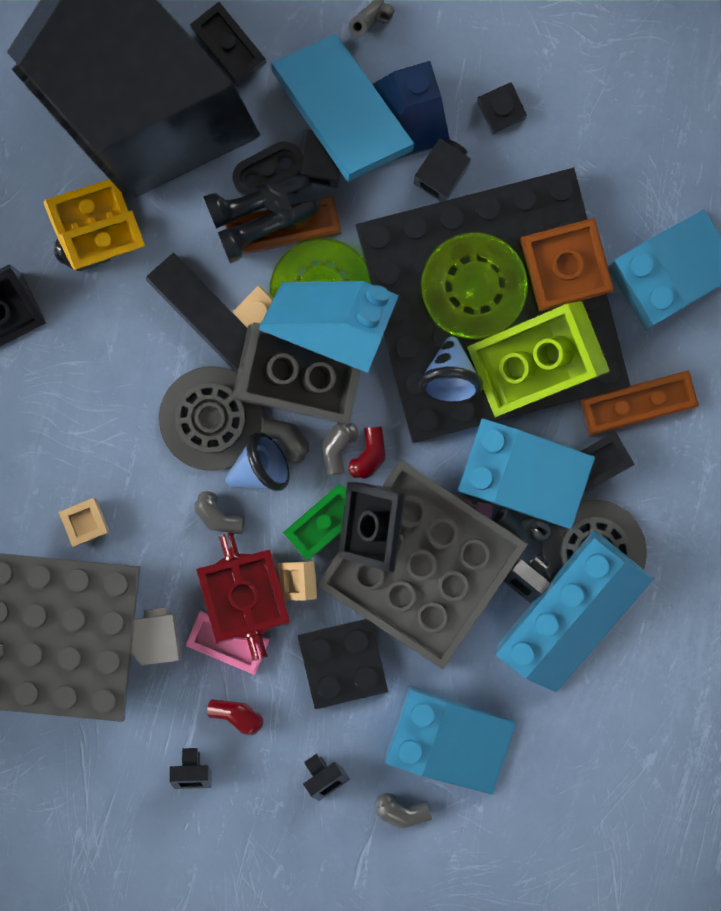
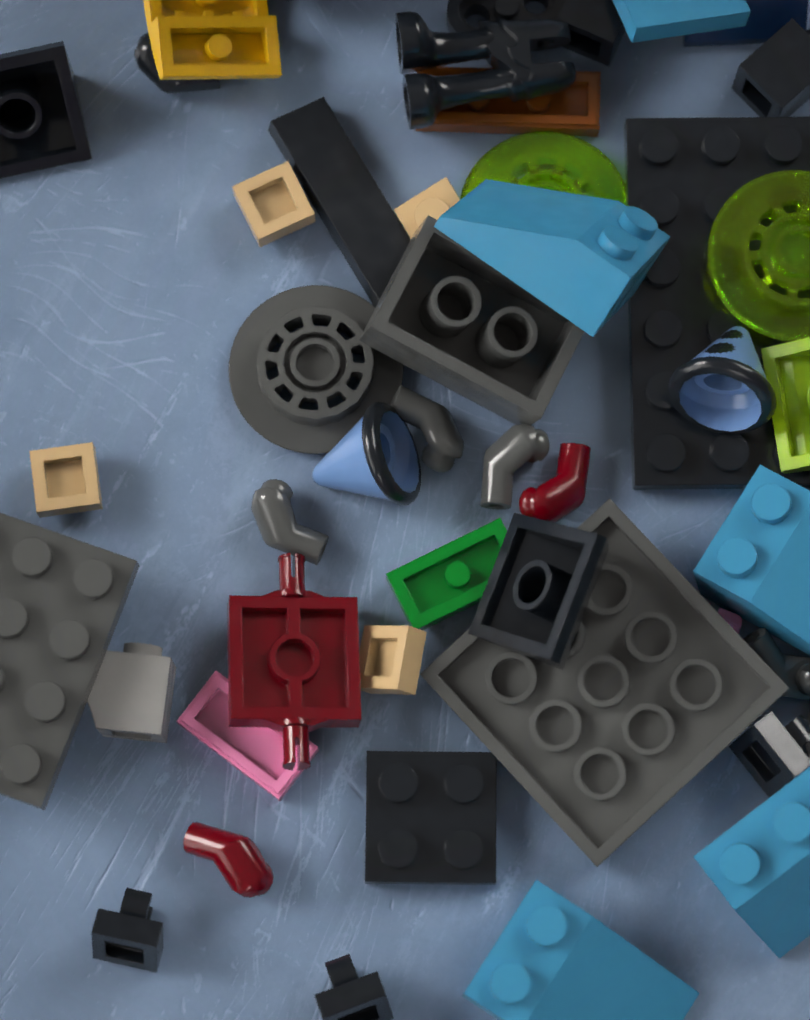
camera: 15 degrees right, 10 degrees down
(161, 326) = (274, 204): none -> tan plate

